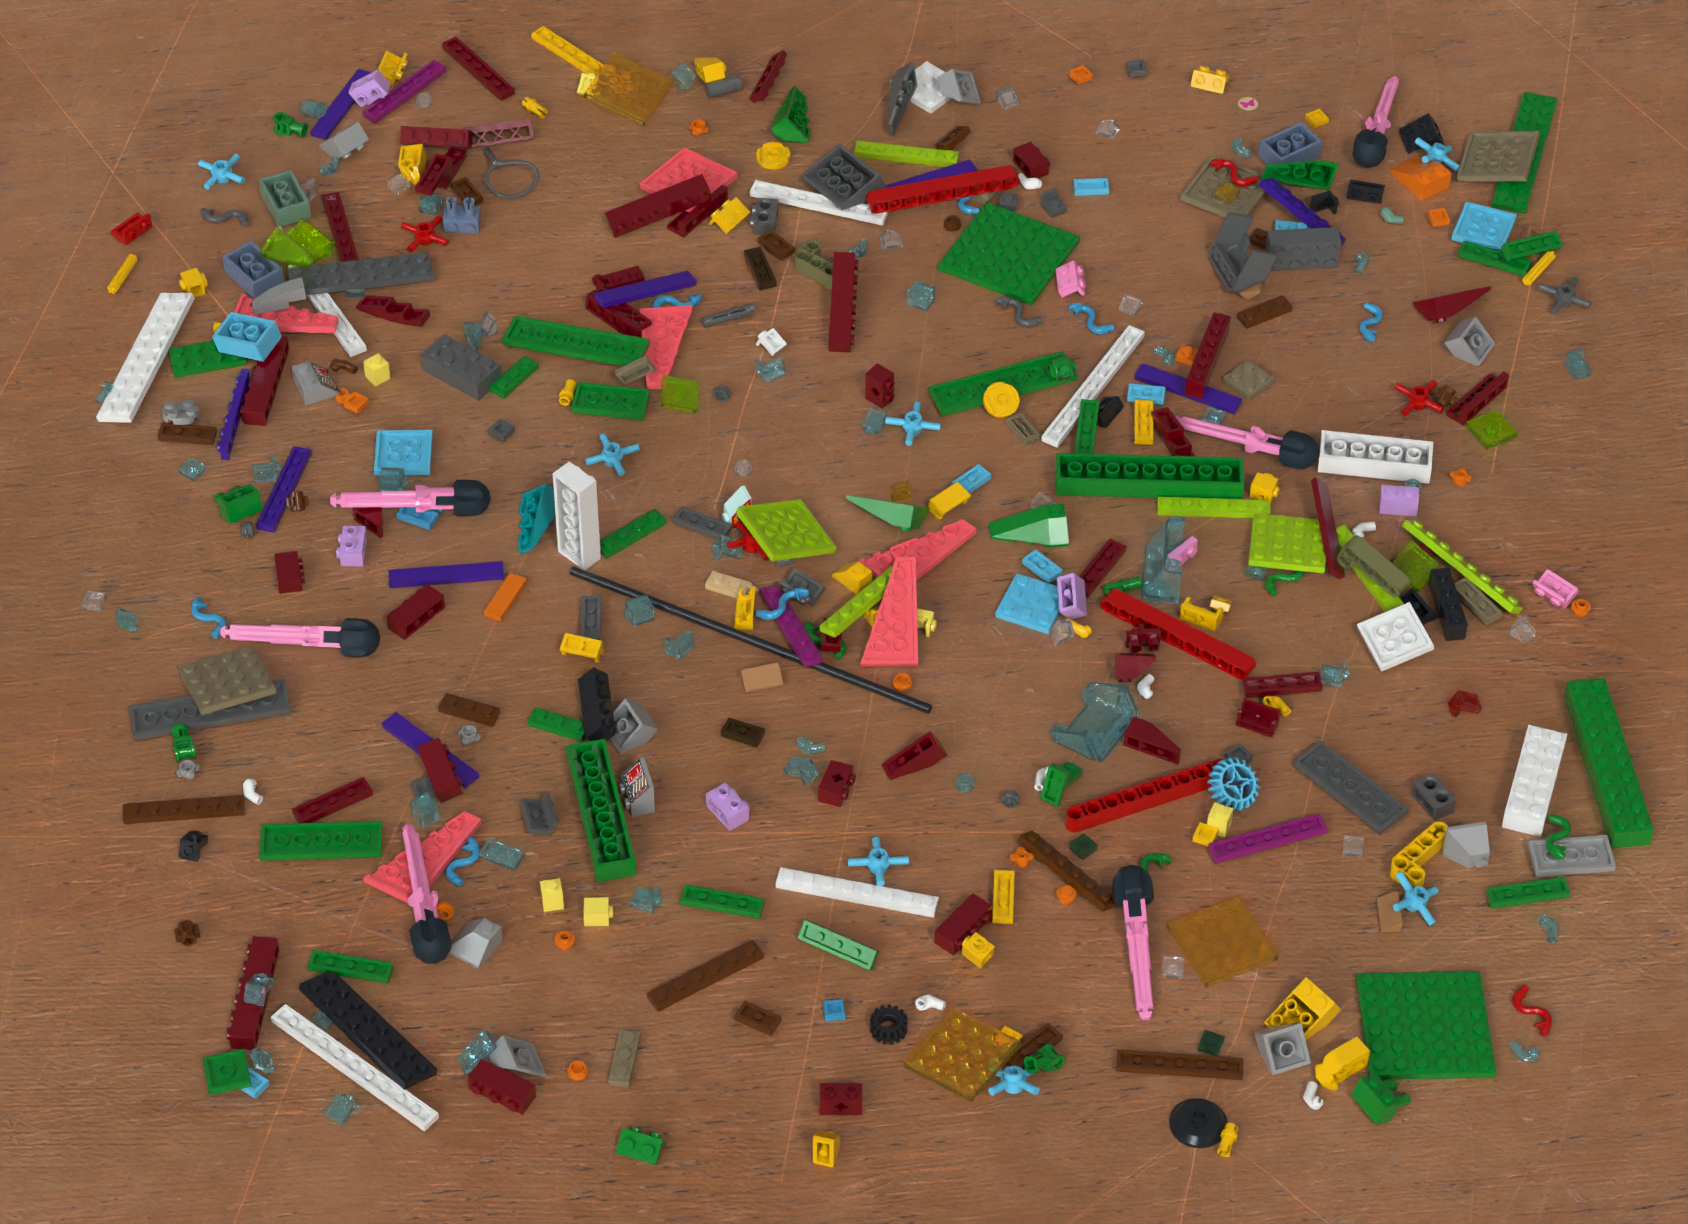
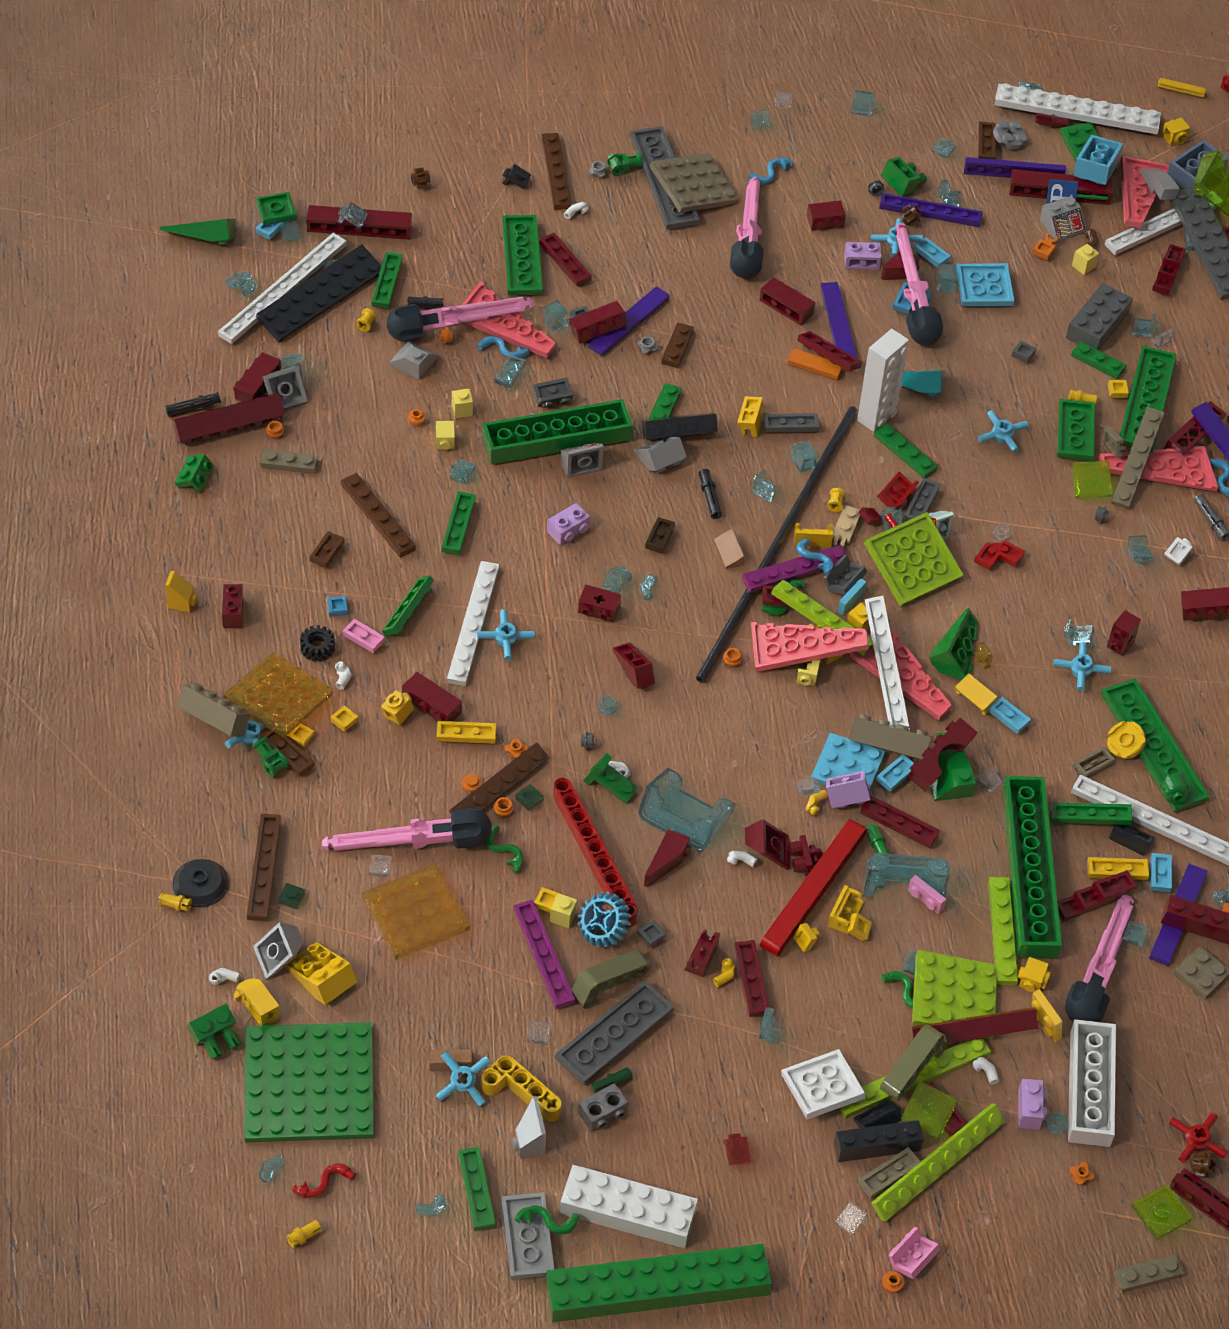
camera: 85 degrees right, 5 degrees up
(113, 530) = (863, 103): none -> clear light blue brick
(161, 378) = (1051, 120): none -> dark red axle
(251, 1140) = (213, 230): none -> green wedge
(281, 376) = (1062, 189): none -> blue piece
(330, 517) = (892, 239): none -> medium azure bar
(358, 484) = (932, 252): none -> medium azure plate
(390, 930) = (425, 302): none -> black pin
(413, 985) = (364, 322): none -> yellow bush
(495, 579) = (829, 351): none -> dark red plate
(533, 1143) = (213, 399): none -> black pin
(557, 365) = (1118, 388): none -> yellow plate
(564, 1110) = (228, 417): none -> dark red brick
(660, 352) = (1137, 457): none -> dark tan plate
(678, 690) = (708, 488): none -> black pin
(691, 539) = (897, 491): none -> red bracket
(699, 589) = (836, 500): none -> yellow bush
(721, 564) = (870, 516): none -> dark red tile
(769, 473) = (1004, 551): none -> red plate
(833, 586) = (851, 597): none -> medium azure tile
(878, 984) = (363, 636): none -> bright pink plate
(925, 556) = (886, 661): none -> white plate
(988, 999) = (344, 718): none -> yellow plate
(993, 1102) = (213, 709): none -> dark tan brick
(1006, 564) = (889, 737): none -> dark tan brick
(1047, 537) = (956, 738): none -> dark red arch
(1094, 864) = (503, 802): none -> orange plate
(1237, 640) = (806, 937): none -> yellow tile
(1296, 784) = (608, 975): none -> olive beam
(1303, 478) = (1047, 1016): none -> yellow plate
(1402, 791) = (617, 1078): none -> dark green axle
(1548, 445) = (1148, 1273): none -> dark tan plate
(1593, 1025) = (300, 1235): none -> yellow pin

